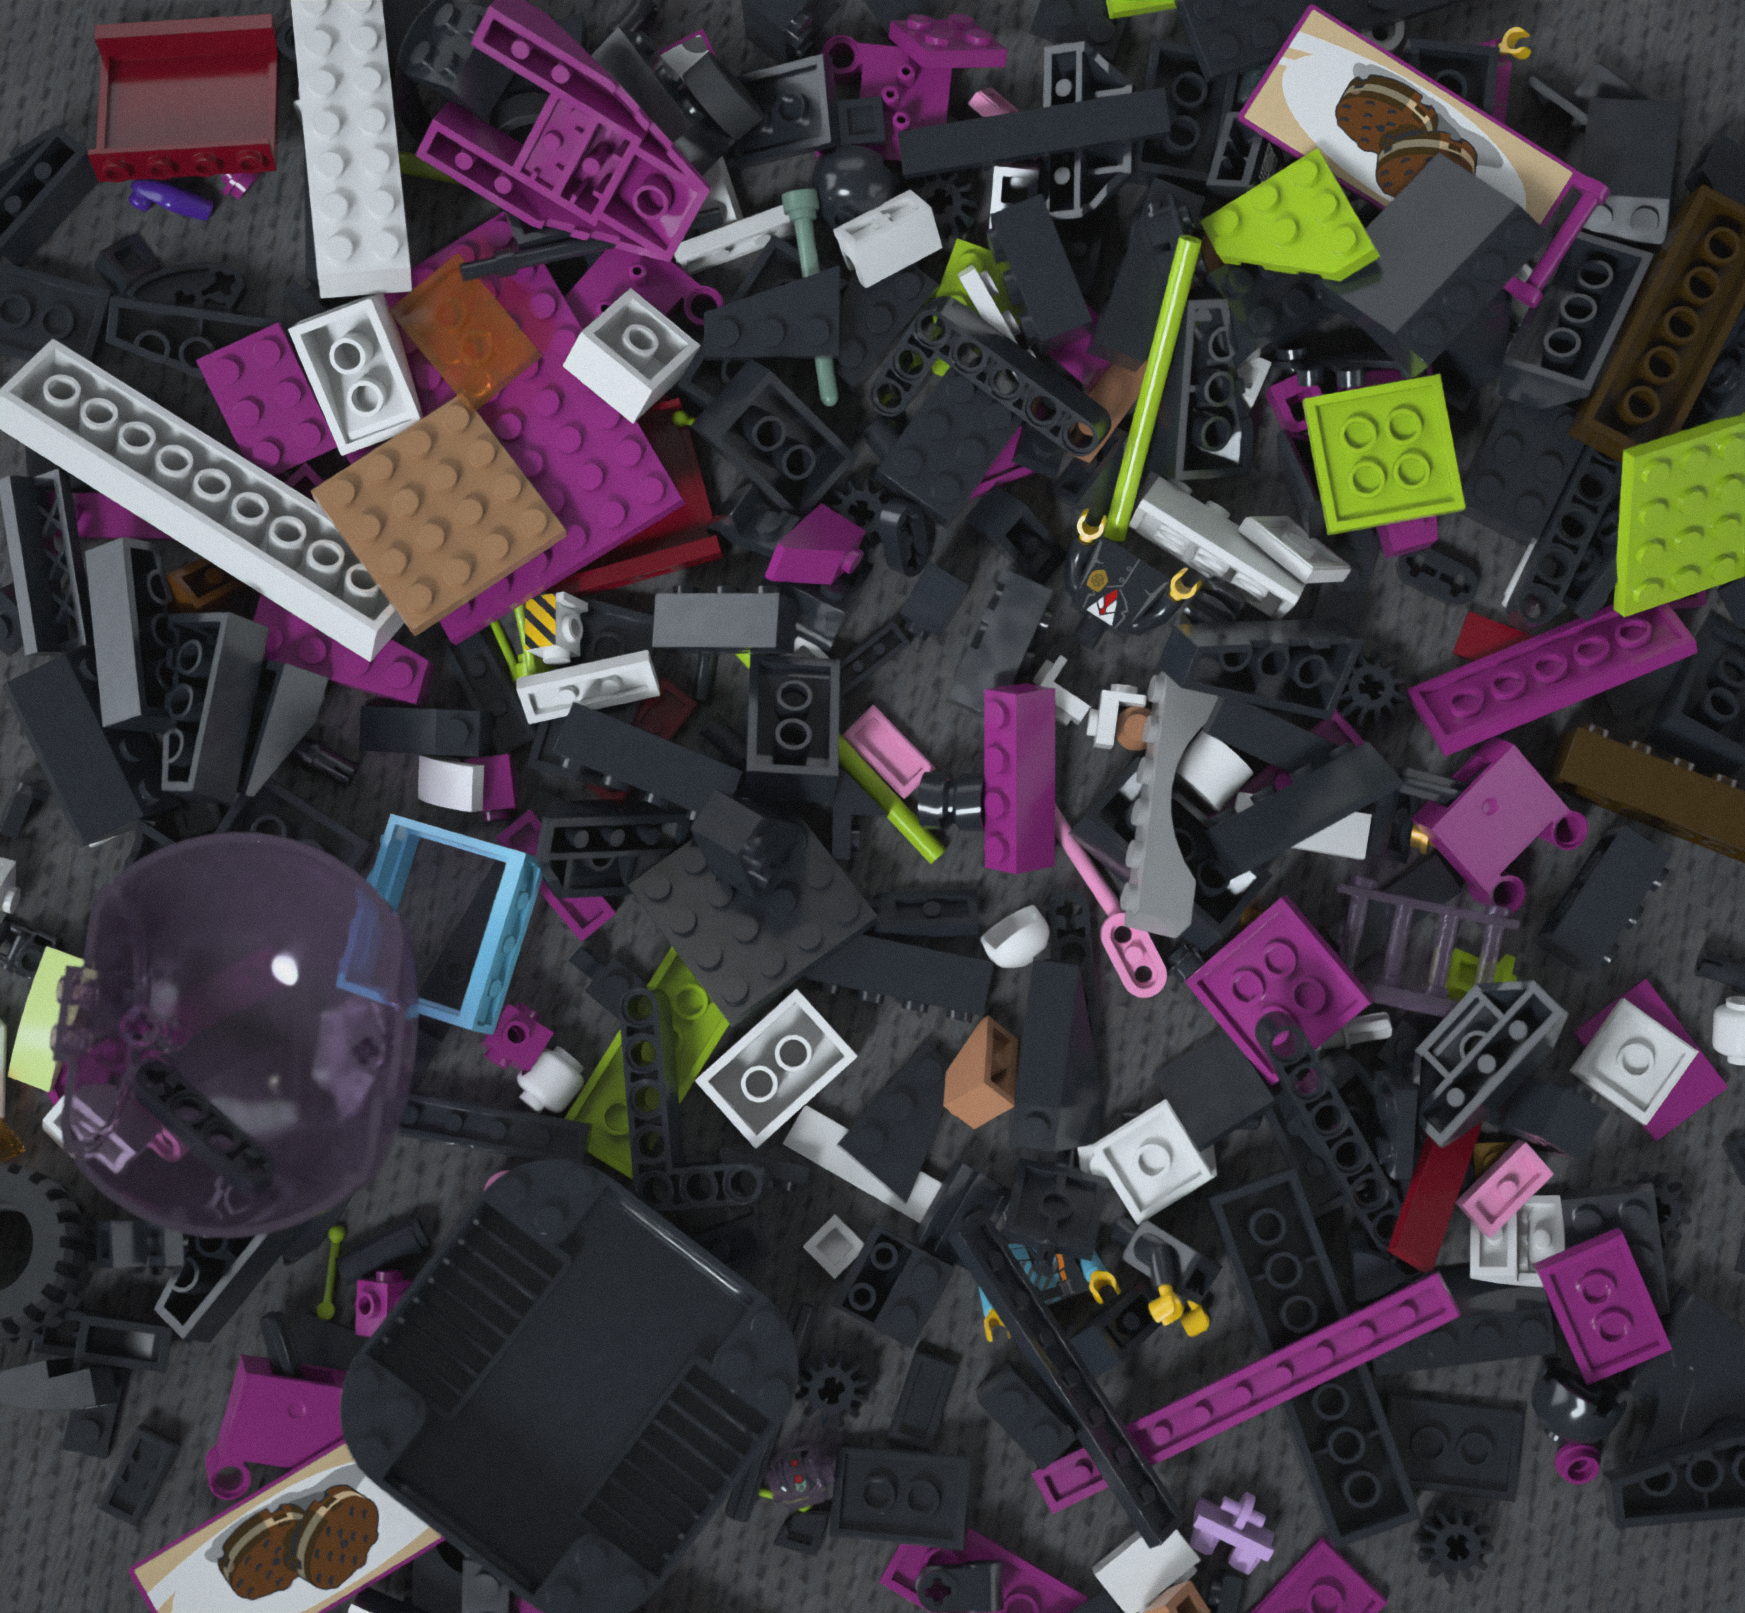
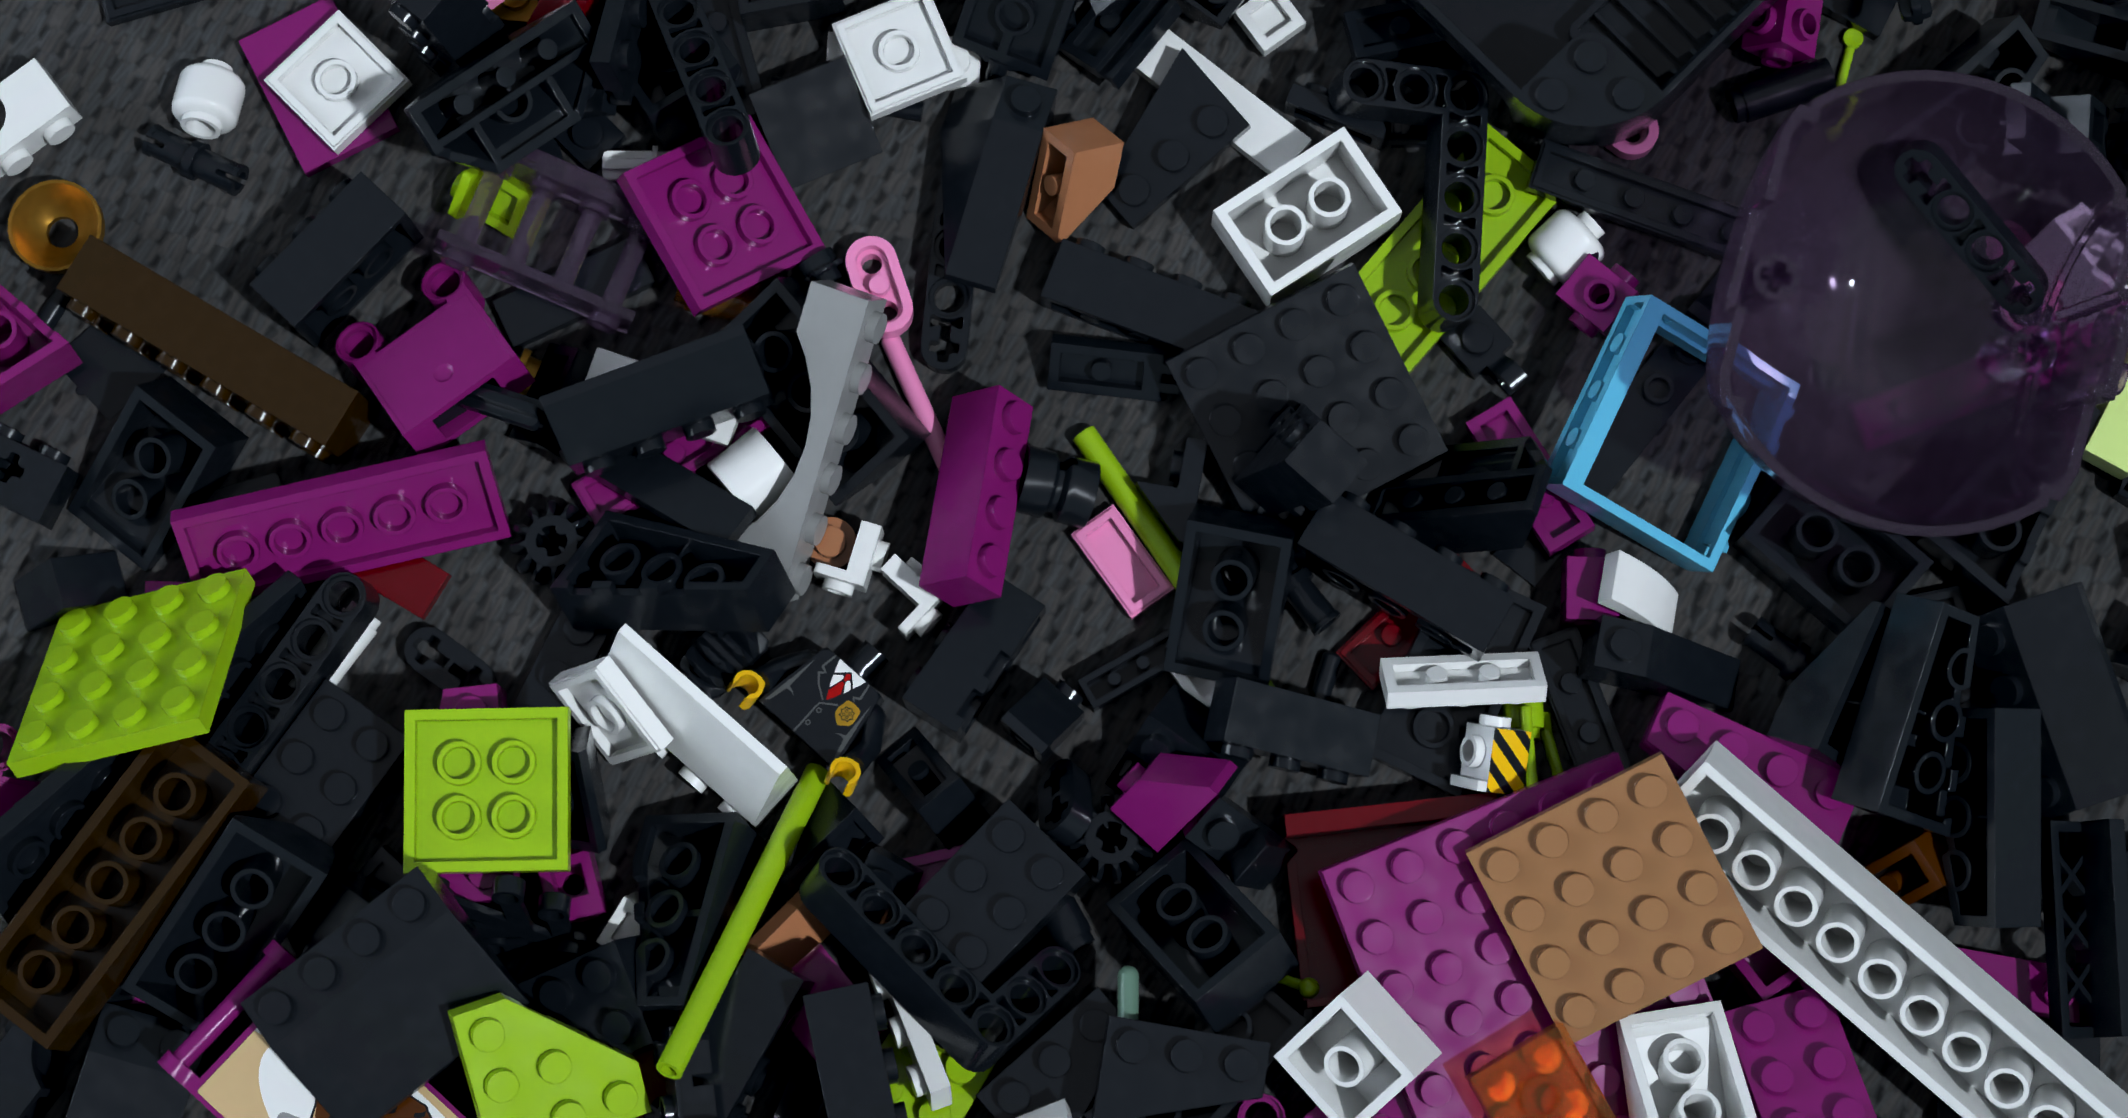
camera: 170 degrees left, 5 degrees down
(1017, 938) = (1009, 323): white hair -> none

